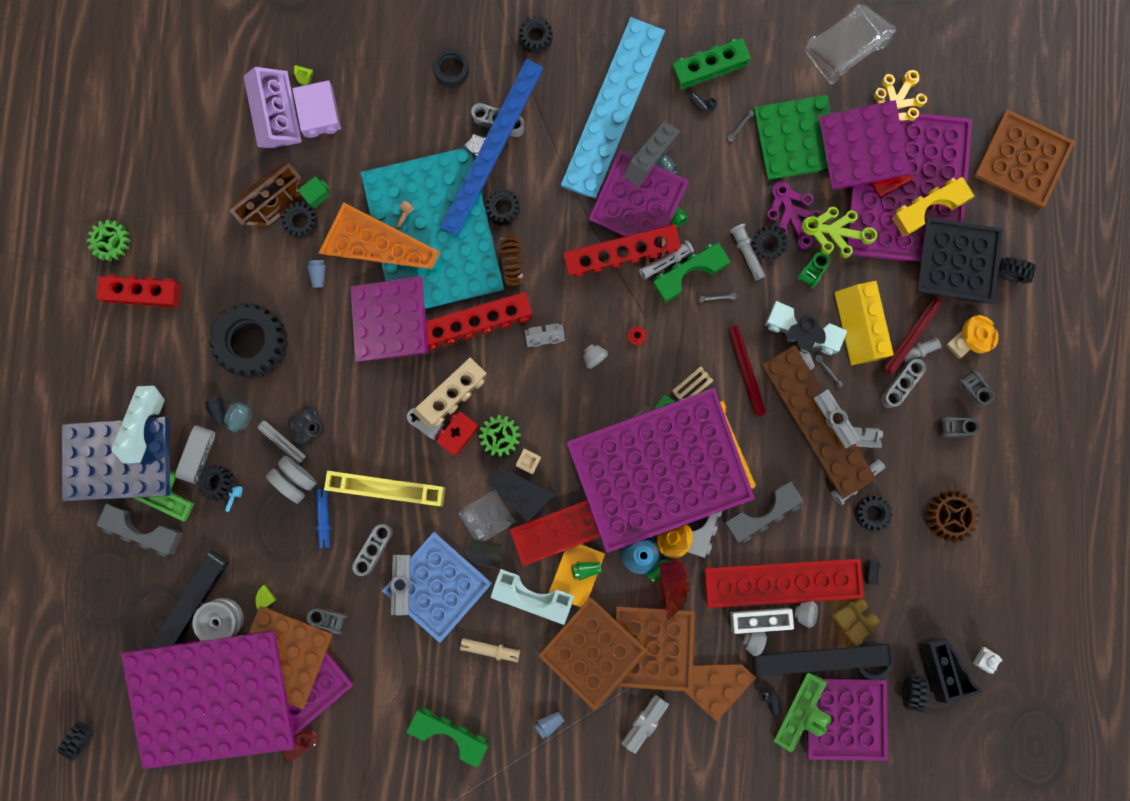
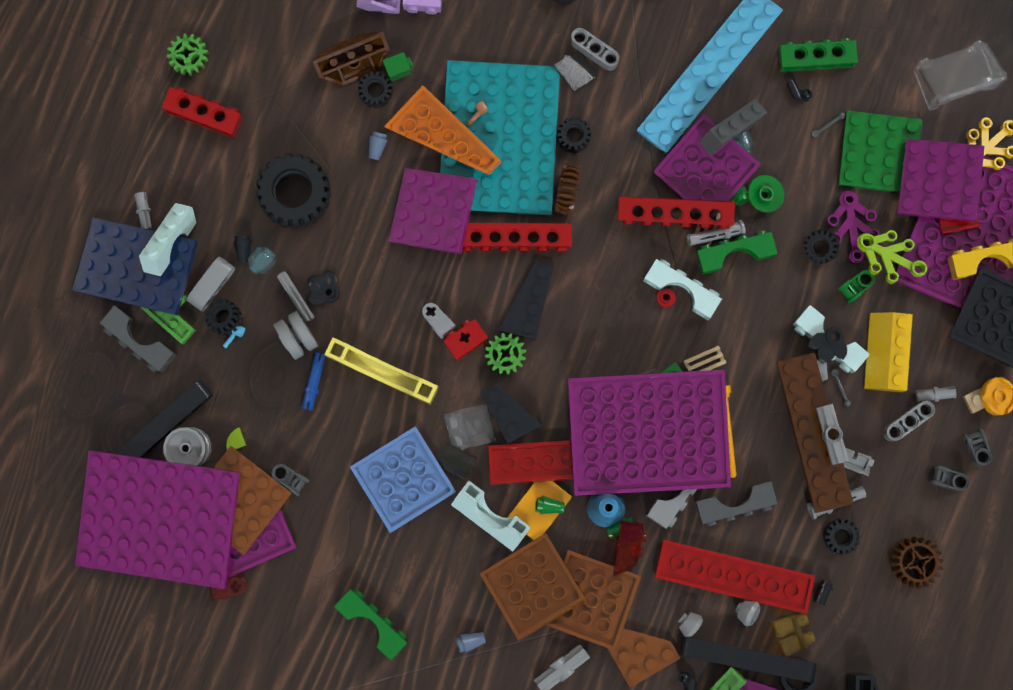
camera: 15 degrees right, 0 degrees up
(75, 741) = (22, 519): black tyre -> none
(109, 403) = (143, 210): none -> light grey axle
(364, 554) = (343, 429): light grey beam -> none
(400, 598) = (373, 453): light grey piece -> none
(468, 371) = (494, 283): tan brick -> none
(492, 147) = (581, 75): blue plate -> none
(498, 652) = (435, 554): tan pin -> none
(508, 385) = (527, 309): none -> black wing
(528, 461) = (525, 386): tan plate -> none
(553, 334) = (586, 271): light grey hinge -> none
(594, 355) = (619, 304): light grey cone -> none
(674, 328) = (703, 301): none -> light aqua arch
(675, 541) = (643, 505): light orange tile -> none
(707, 203) = (772, 189): none -> green dish
(732, 296) = (770, 287): dark grey hinge -> none
(744, 243) = (797, 239): light grey pin -> none
(747, 371) = (761, 363): dark red axle -> none
(761, 620) = (702, 605): white brick -> none
(913, 335) = (932, 378): dark red axle -> none

